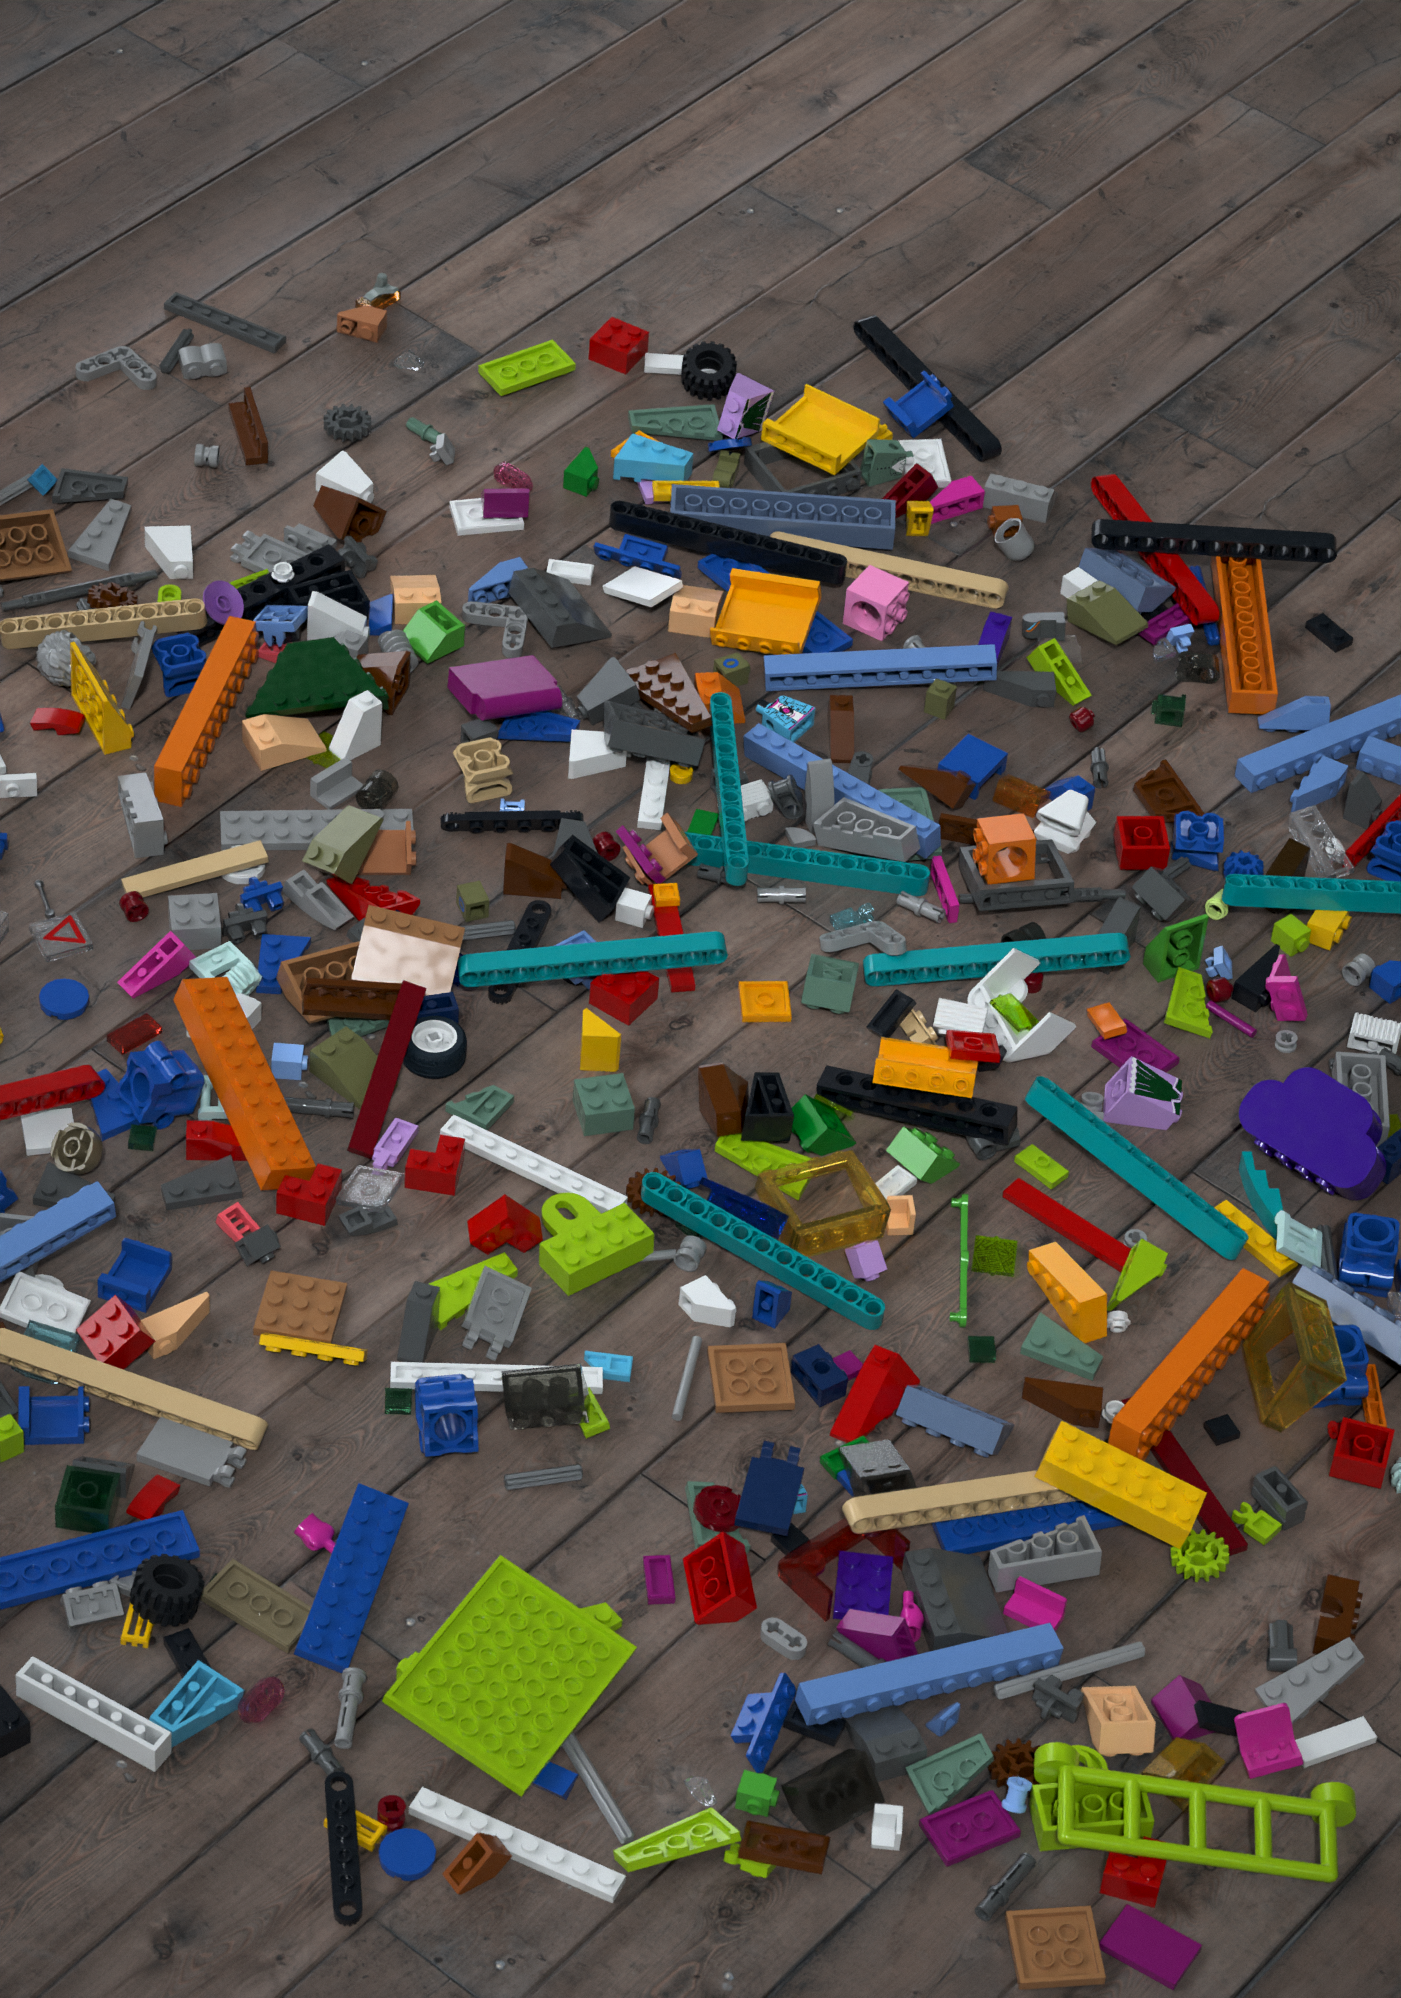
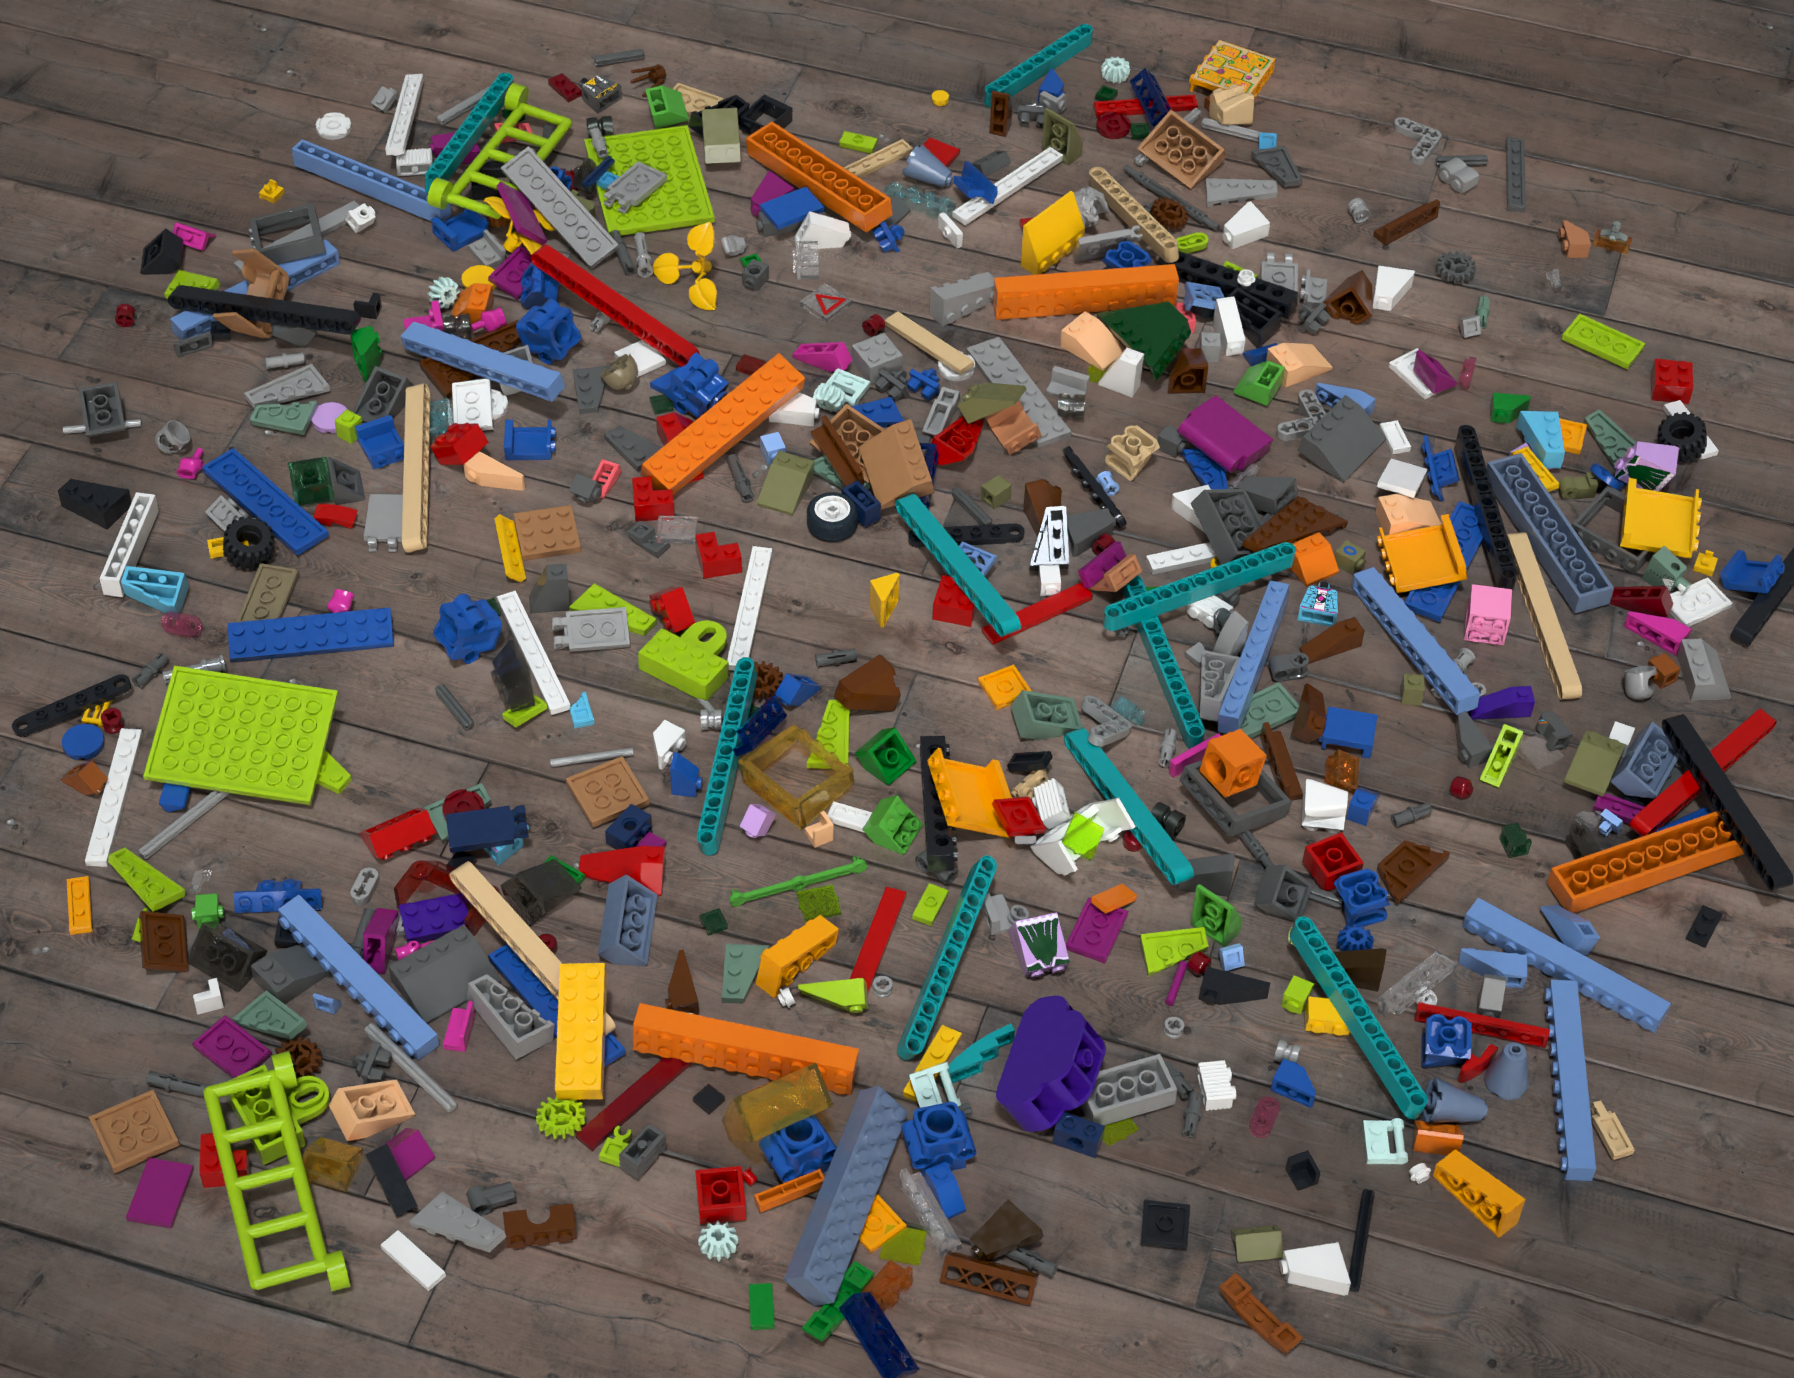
camera: 70 degrees right, 5 degrees up
(49, 913) = (846, 291): flat silver hinge -> none
(64, 998) = (767, 324): blue tile -> none
(184, 1650) = (209, 577): black plate -> none
(222, 601) = (1194, 250): medium lavender dish -> none
(386, 1069) = (785, 494): dark red tile -> none
(394, 1143) = (726, 527): lavender hinge -> none
(397, 641) = (1225, 371): light grey piece -> none
(482, 1107) = (792, 563): sand green wing -> none
(603, 1104) = (832, 625): sand green brick -> none
(659, 1579) = (389, 800): magenta tile -> none
(666, 894) = (1074, 594): light orange tile -> none
(678, 1922) = (79, 905): none -> light orange tile
(768, 1110) = (869, 715): black wedge -> none
(781, 895) = (1123, 661): light grey pin -> none
(834, 1106) = (906, 754): clear neon green piece -> none
(918, 518) = (1613, 610): yellow slope -> none
(1016, 1794) = (262, 1057): light blue bush -> none
(1267, 1740) = (380, 1213): dark pink bracket -> none
(1285, 992) = (1220, 1002): dark pink bracket -> none

